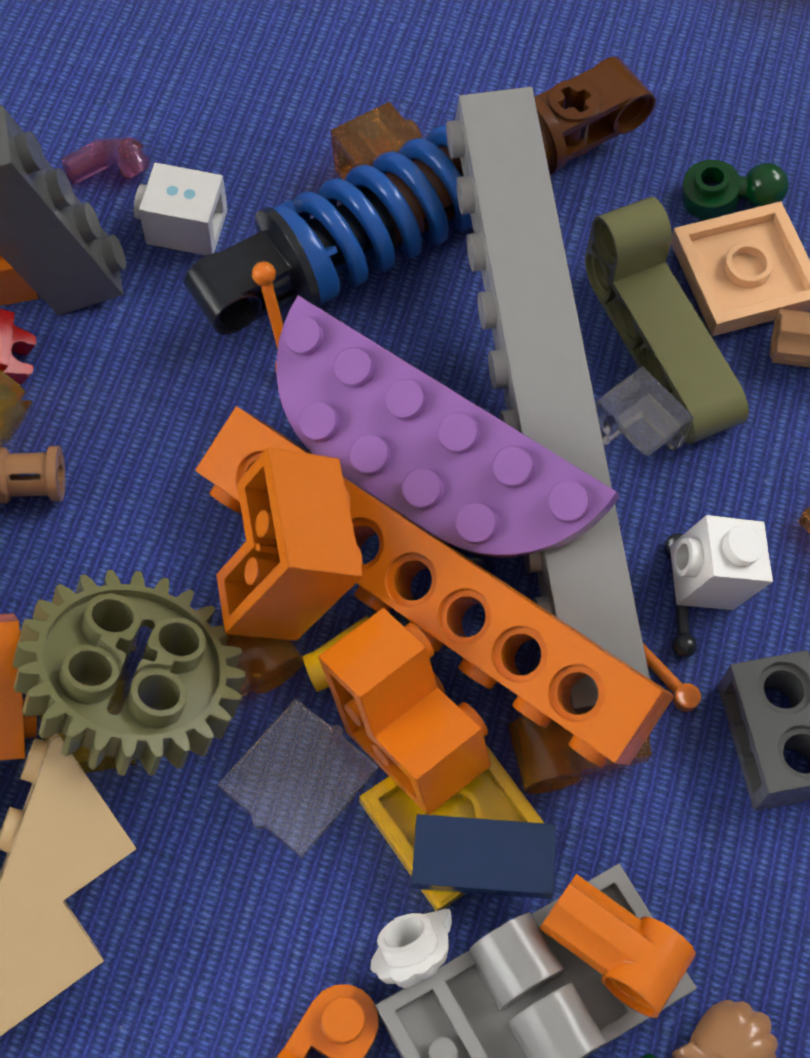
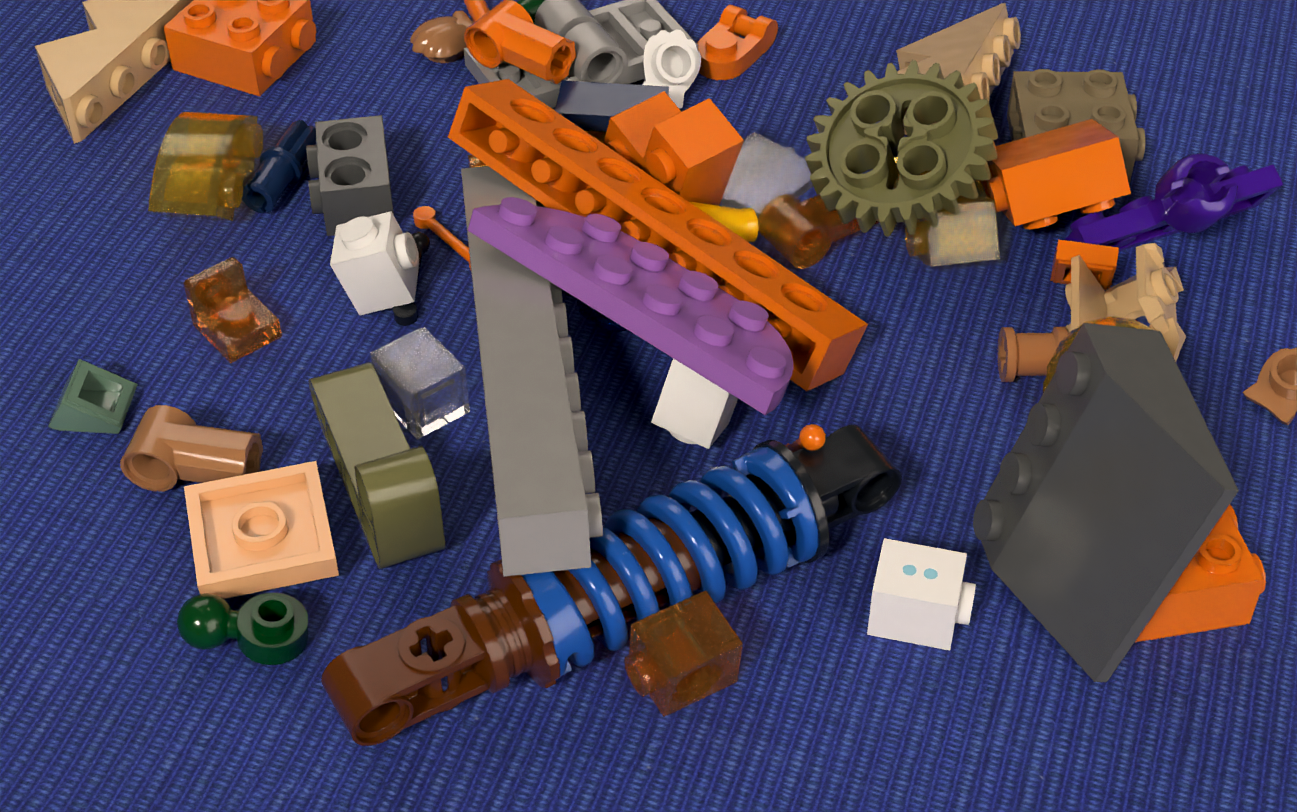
camera: 175 degrees left, 20 degrees down
(103, 153) = (1022, 679): clear pink arm -> none
(296, 546) = (767, 195): orange brick -> none

